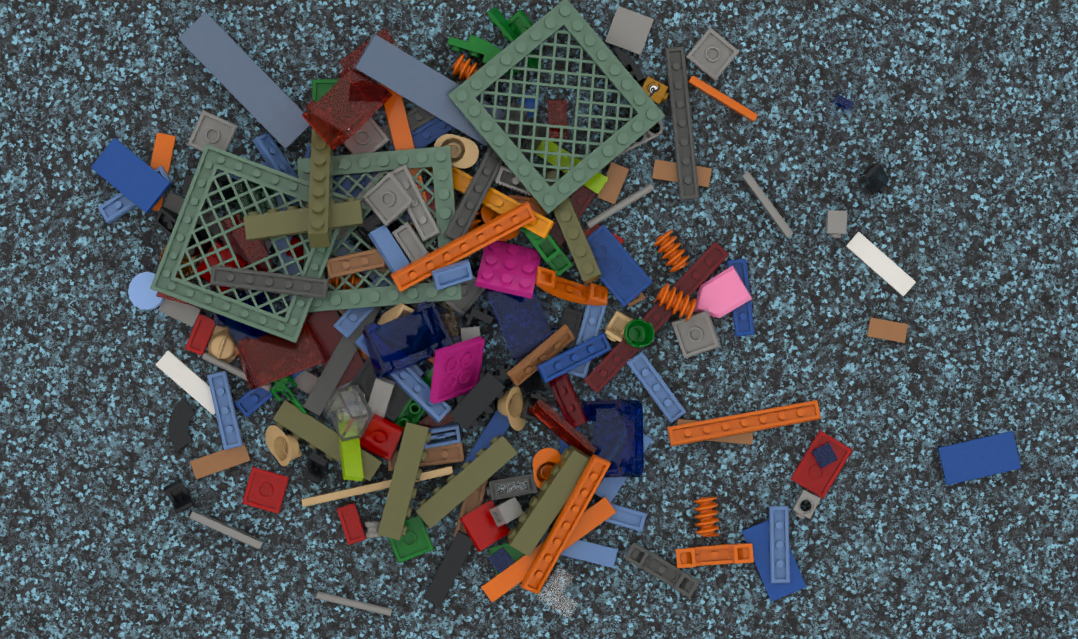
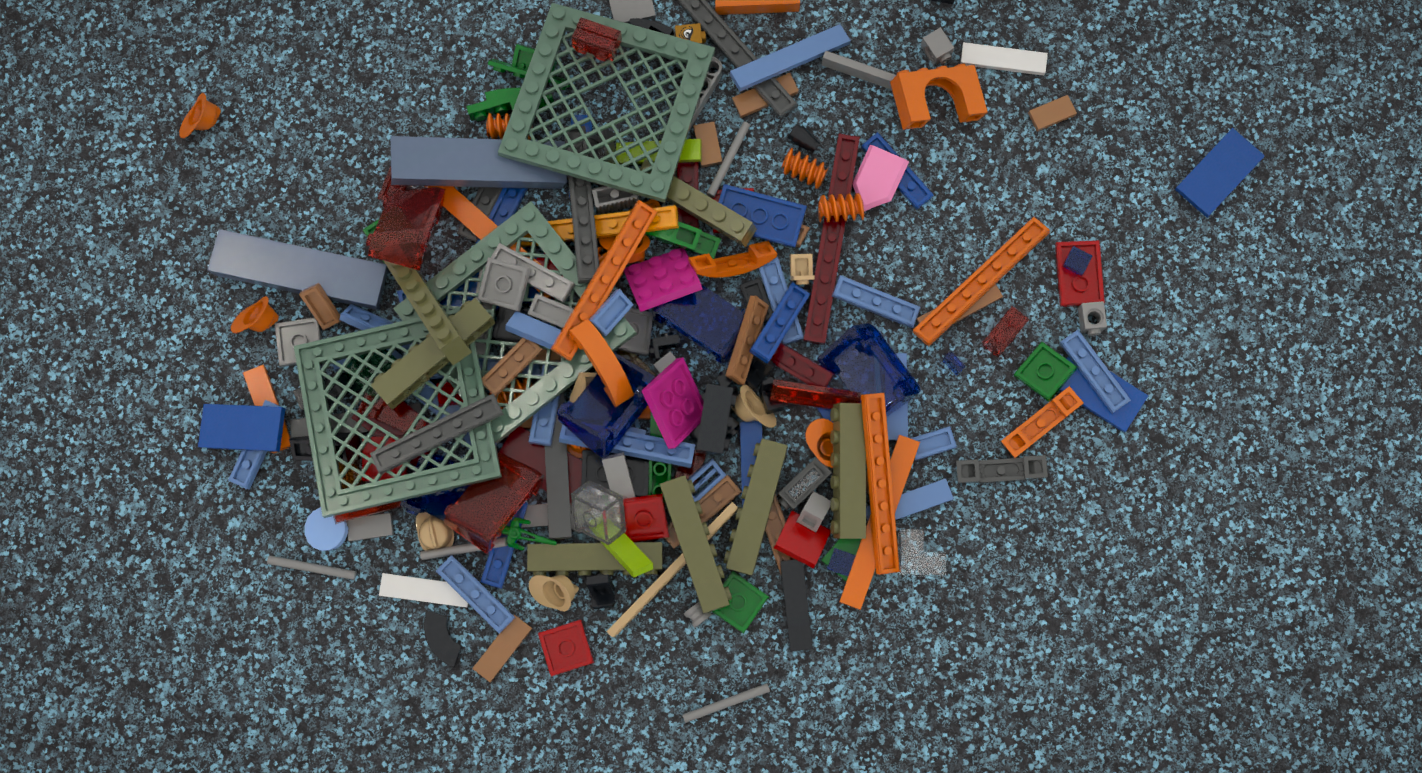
camera: 30 degrees left, 10 degrees down
(119, 311) = (311, 567): none -> light grey bar
(179, 496) = (483, 709): black bracket -> none
(190, 95) = (255, 317): none -> orange piece
(200, 334) = (406, 537): red tile -> none
(226, 529) = (551, 712): light grey tile -> none
(244, 121) = (320, 306): none -> medium nougat tile
(351, 523) = (671, 625): red tile -> none
(367, 139) = (444, 248): light grey tile -> none
(422, 307) = (603, 361): none -> orange slope
(463, 150) = (548, 200): tan piece -> none
(557, 116) = (612, 110): clear red tile -> none
(578, 54) = (596, 39): none -> clear red brick
(639, 333) = (826, 259): green hair -> none
(681, 470) = (953, 363): none -> clear blue tile
(686, 225) = (803, 138): none -> black cone
(696, 334) = (879, 229): light grey tile -> none
(706, 516) = (1008, 390): orange piece -> none
(718, 158) = (789, 57): none -> medium blue tile
(734, 472) = (1005, 331): none -> clear red brick
(743, 520) = (1045, 371): none -> green tile
(832, 262) = (958, 81): none -> orange arch

